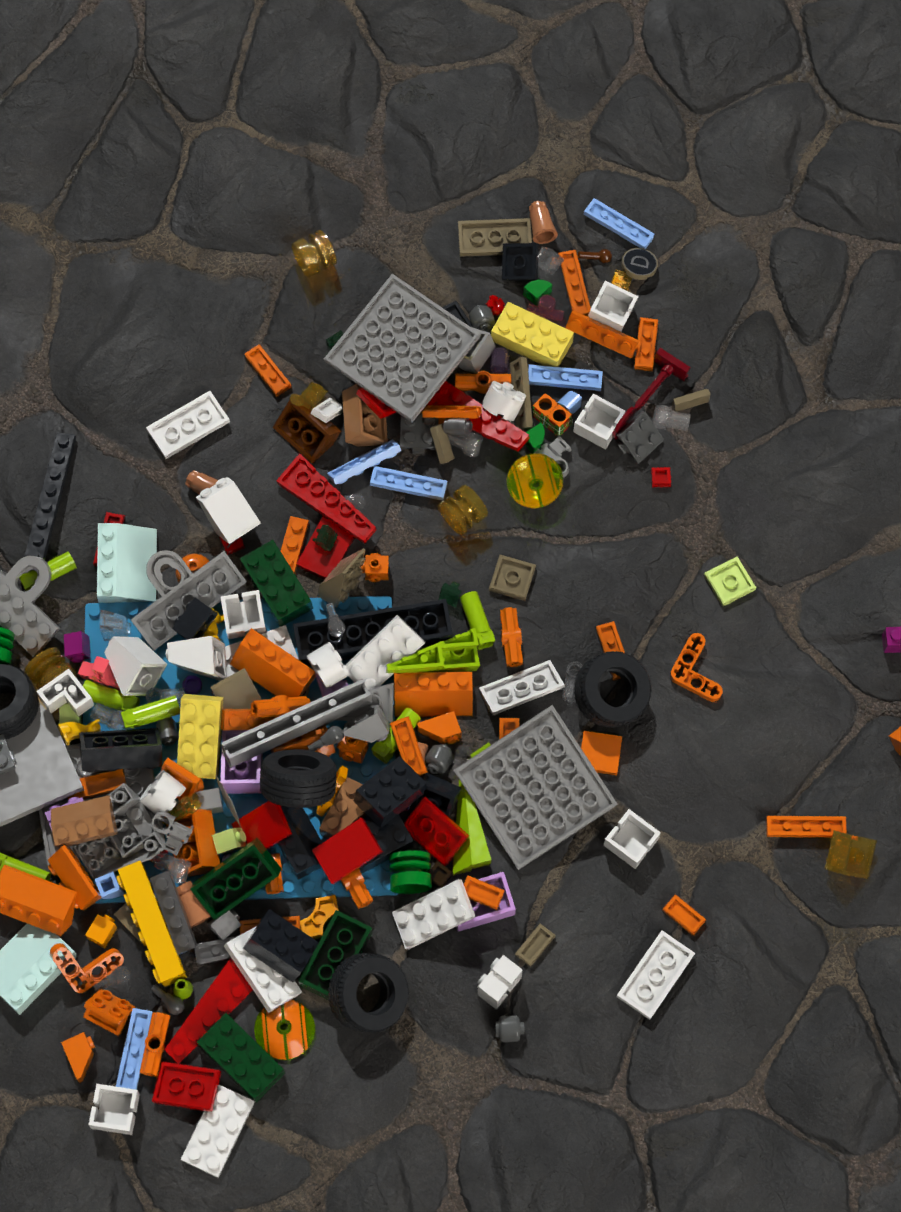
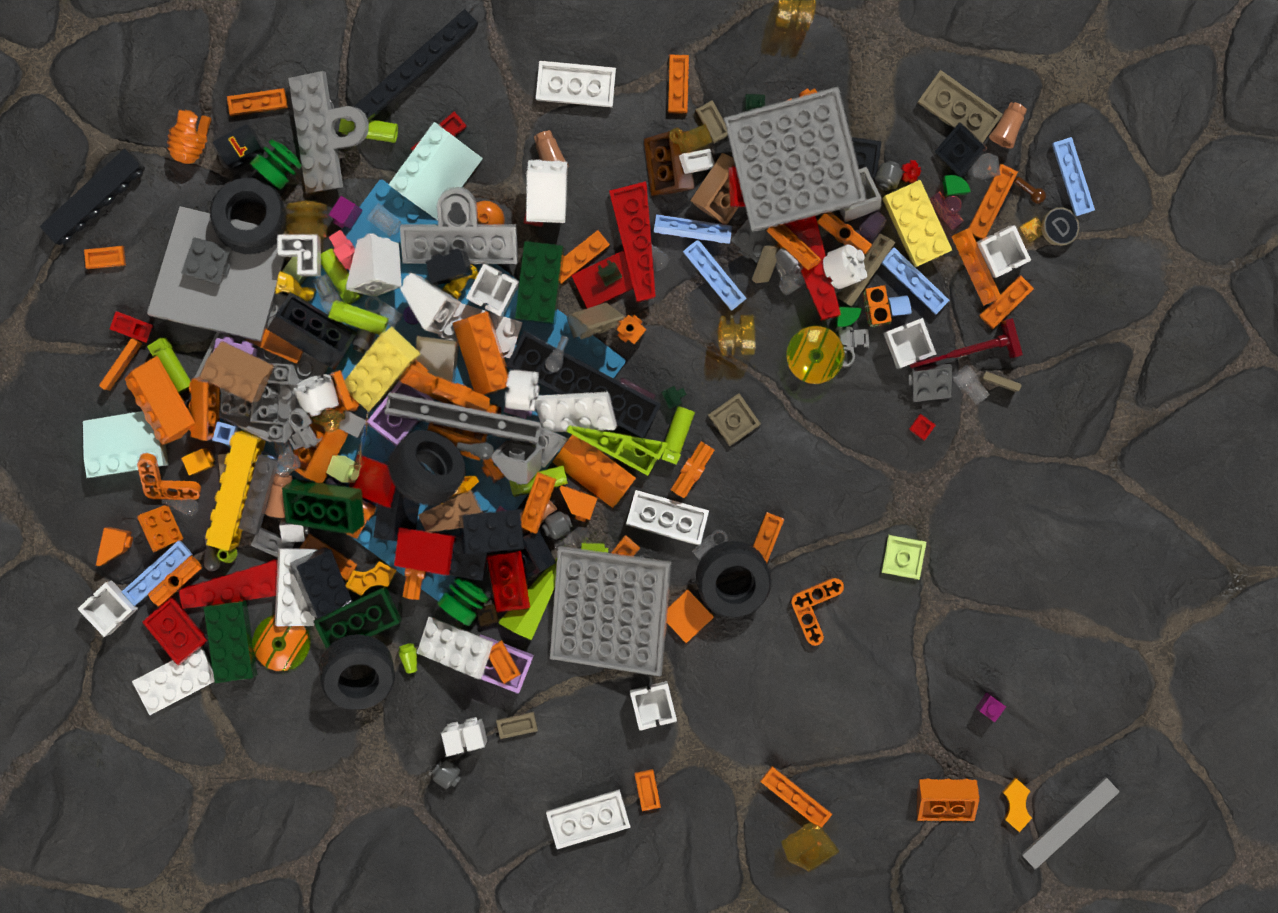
camera: 40 degrees right, 20 degrees up
(316, 375) = (715, 124): none -> dark tan tile
(402, 957) = (408, 656): none -> lime cone

